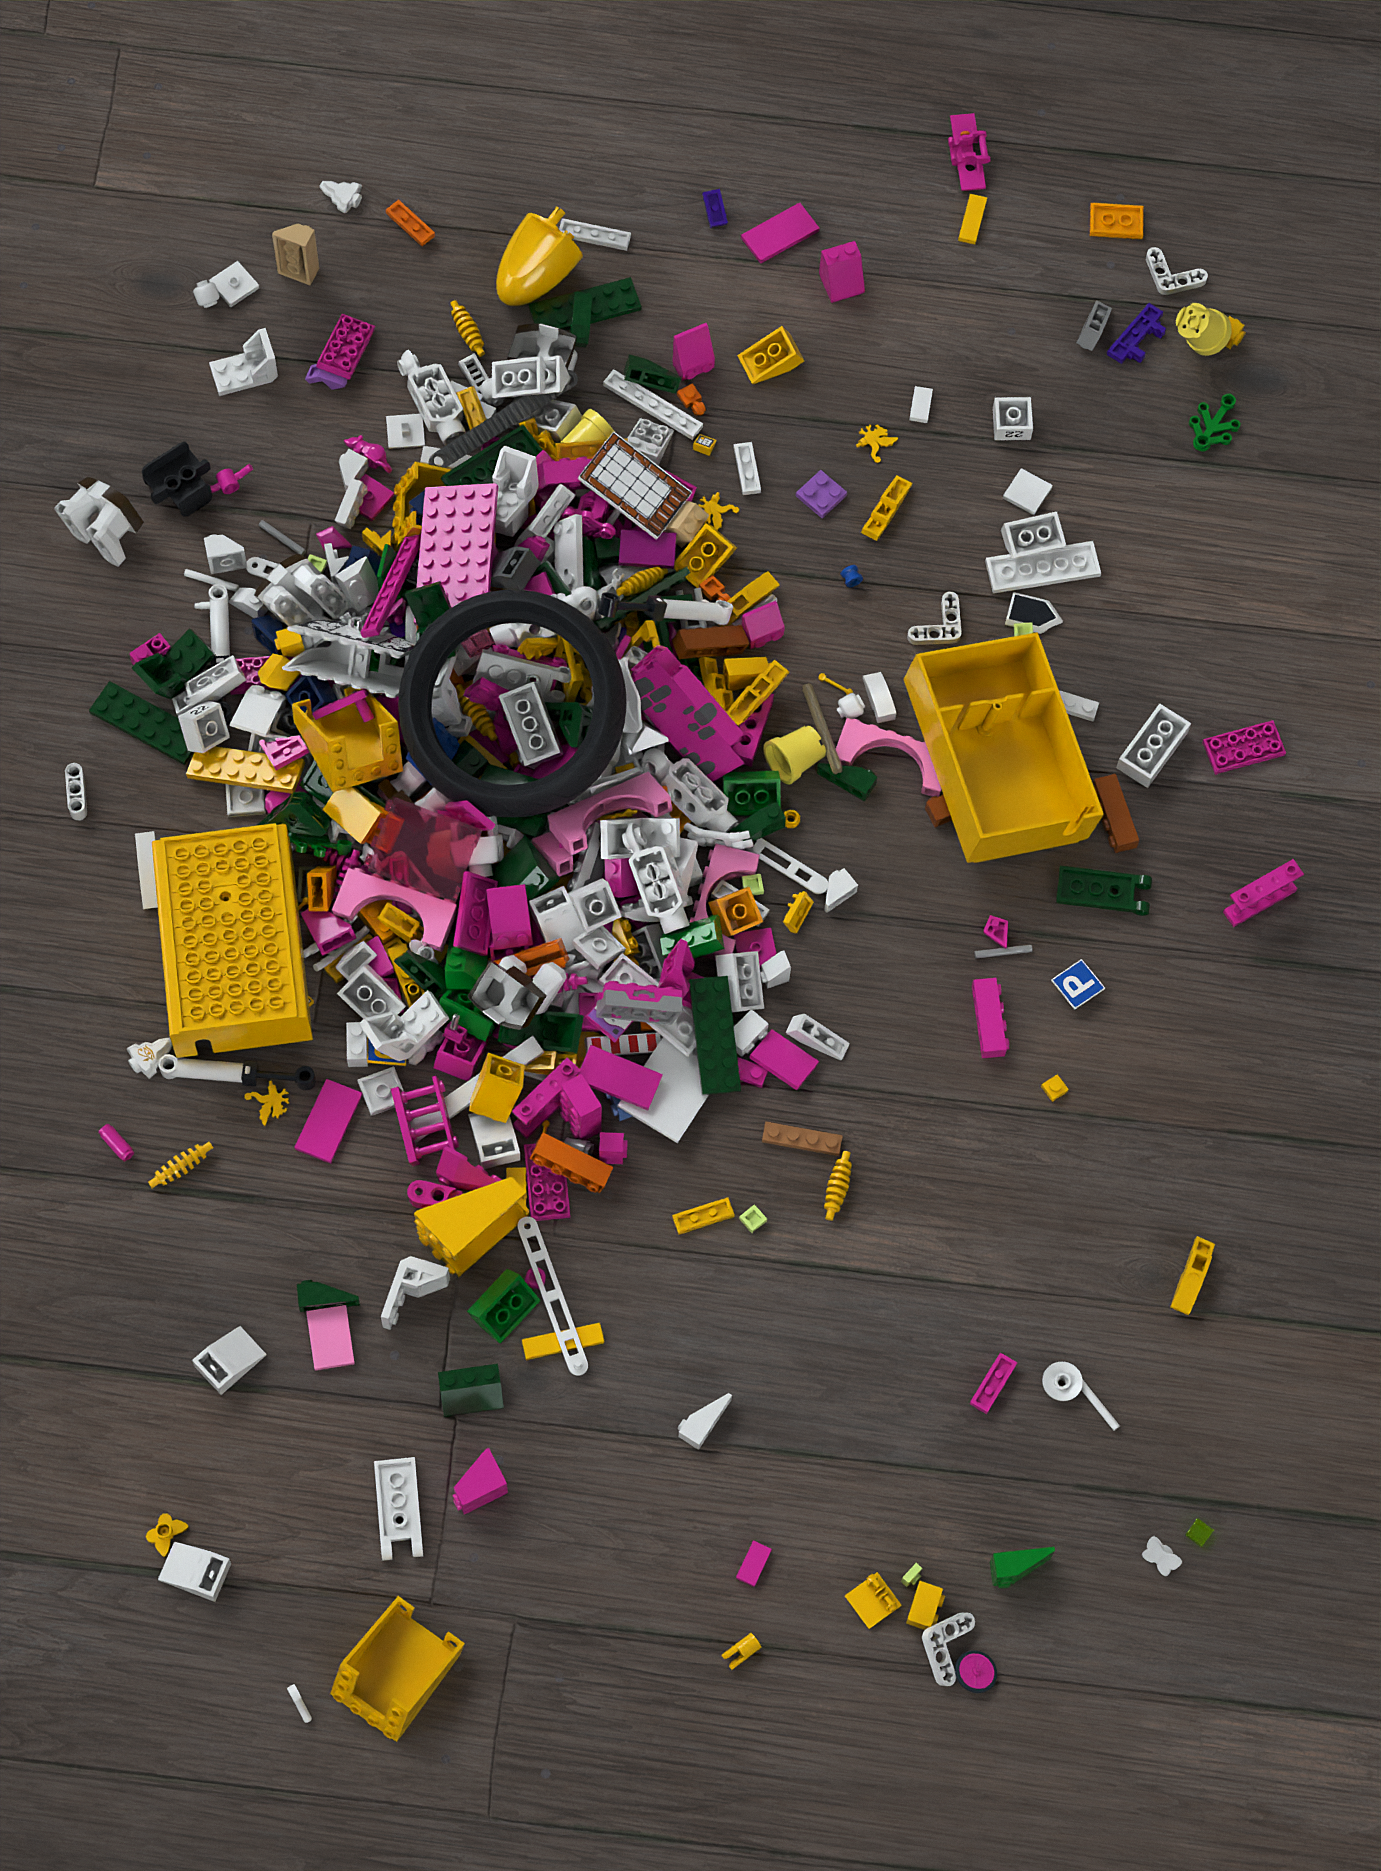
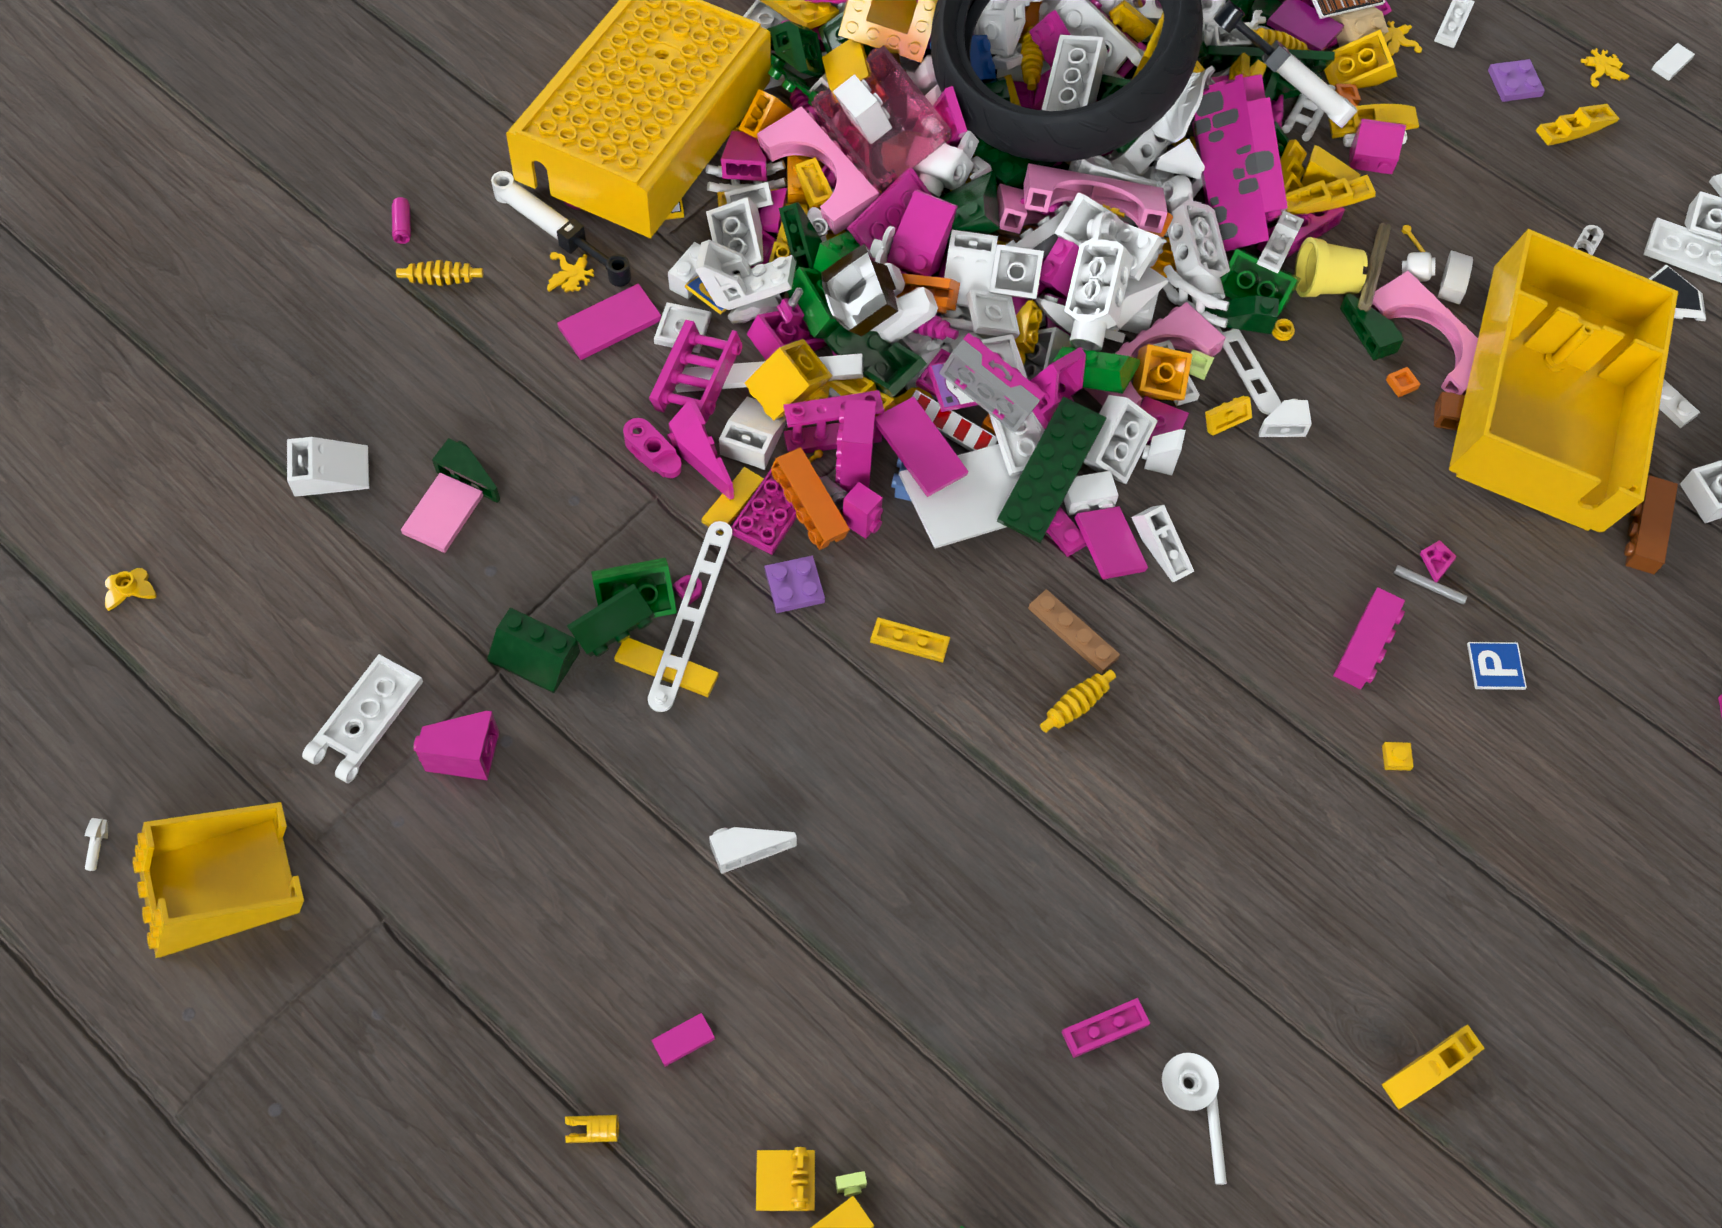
camera: 35 degrees right, 5 degrees down
(147, 1055) = (487, 166): white rock -> none
(195, 1570) = (118, 643): white slope -> none
(396, 844) = (863, 108): none -> white brick
(416, 1279) = (544, 503): white bracket -> none
(470, 1223) = (658, 482): yellow windscreen -> none
(487, 946) = (880, 249): none -> white animal
(511, 1336) = (612, 621): none -> dark green slope
(601, 1228) = (794, 584): none -> medium lavender plate
(635, 633) = (1240, 66): none -> yellow tile
(710, 641) = (1311, 127): dark orange brick -> none
(748, 753) = (1280, 241): none -> white slope
(753, 1218) = (960, 675): yellowish green plate -> none
(851, 576) = (1500, 159): blue wheel -> none
(895, 808) = (1402, 382): none -> orange plate
(1094, 888) = (1581, 583): dark green hinge -> none

